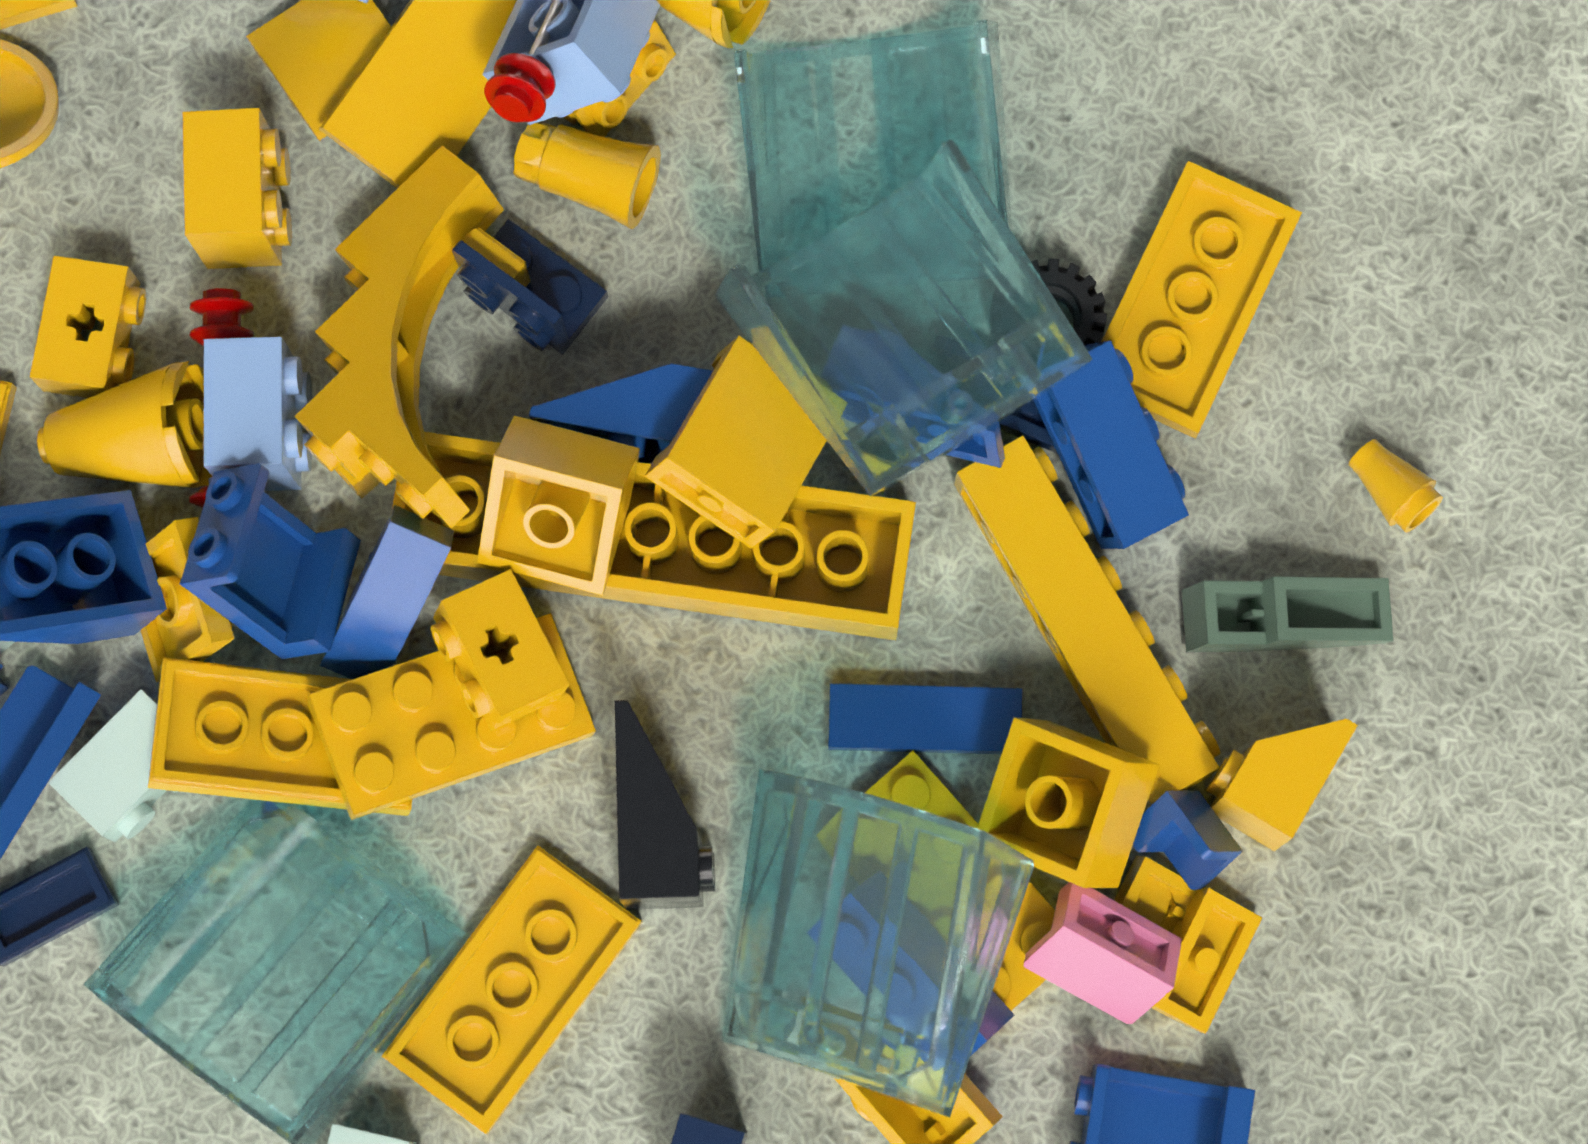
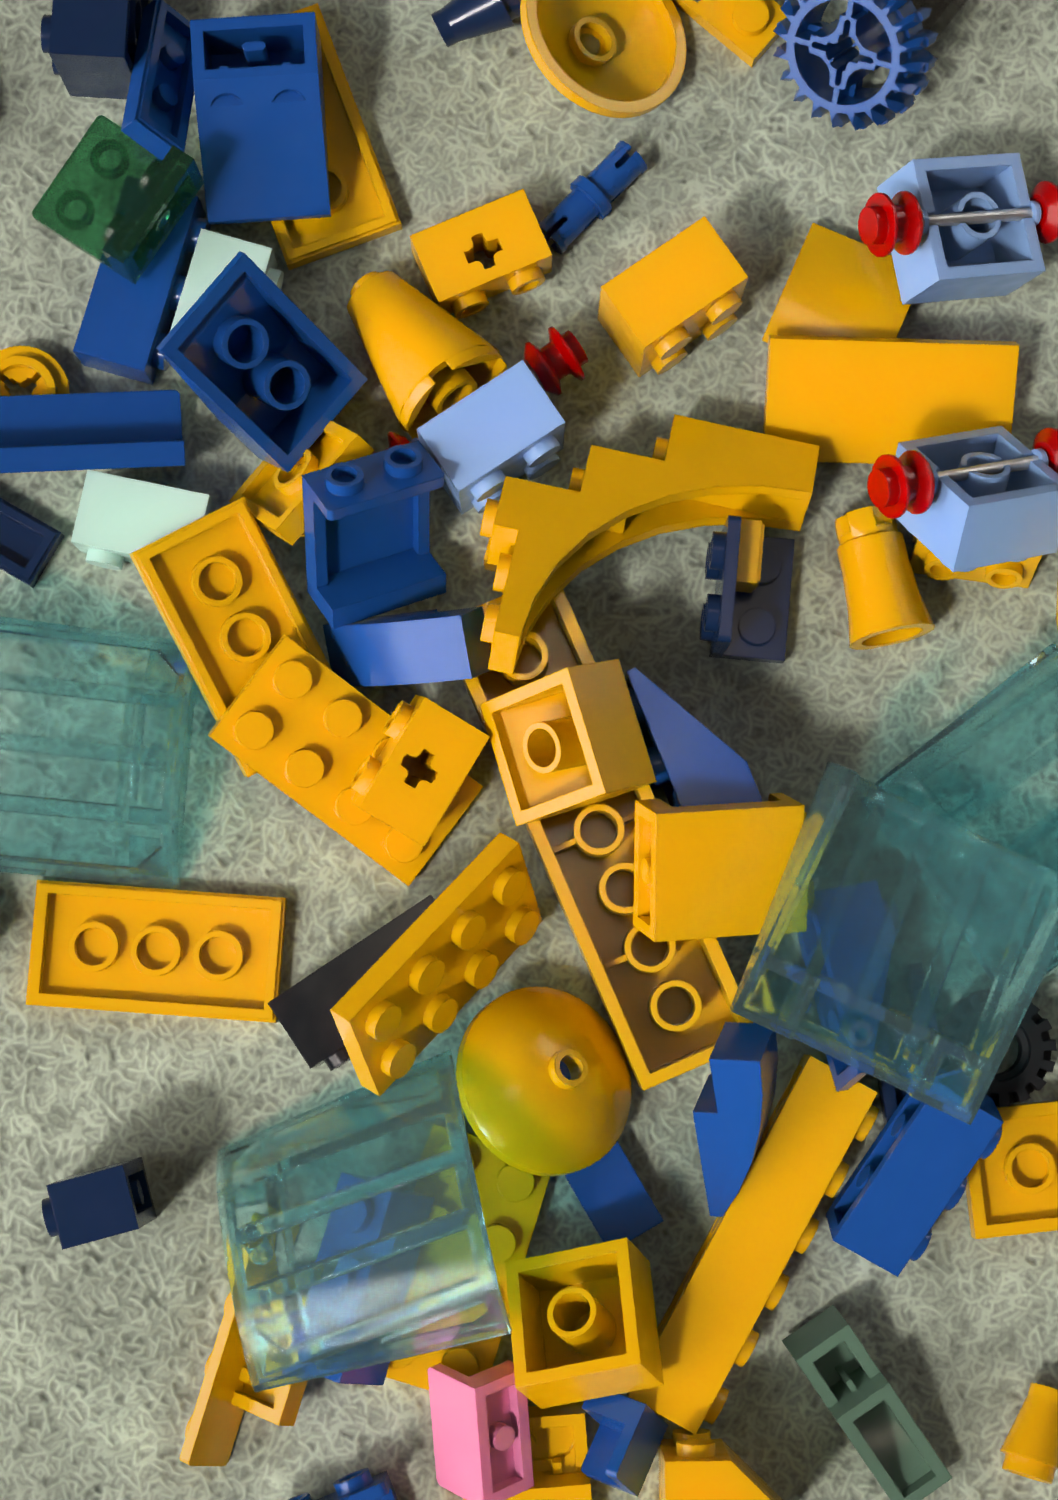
camera: 55 degrees right, 5 degrees up
(98, 204) = (592, 196): none -> blue pin
(680, 735) = (438, 965): none -> yellow plate
(838, 711) = (516, 1088): none -> yellow dish
(962, 559) = (734, 1108): none -> blue slope

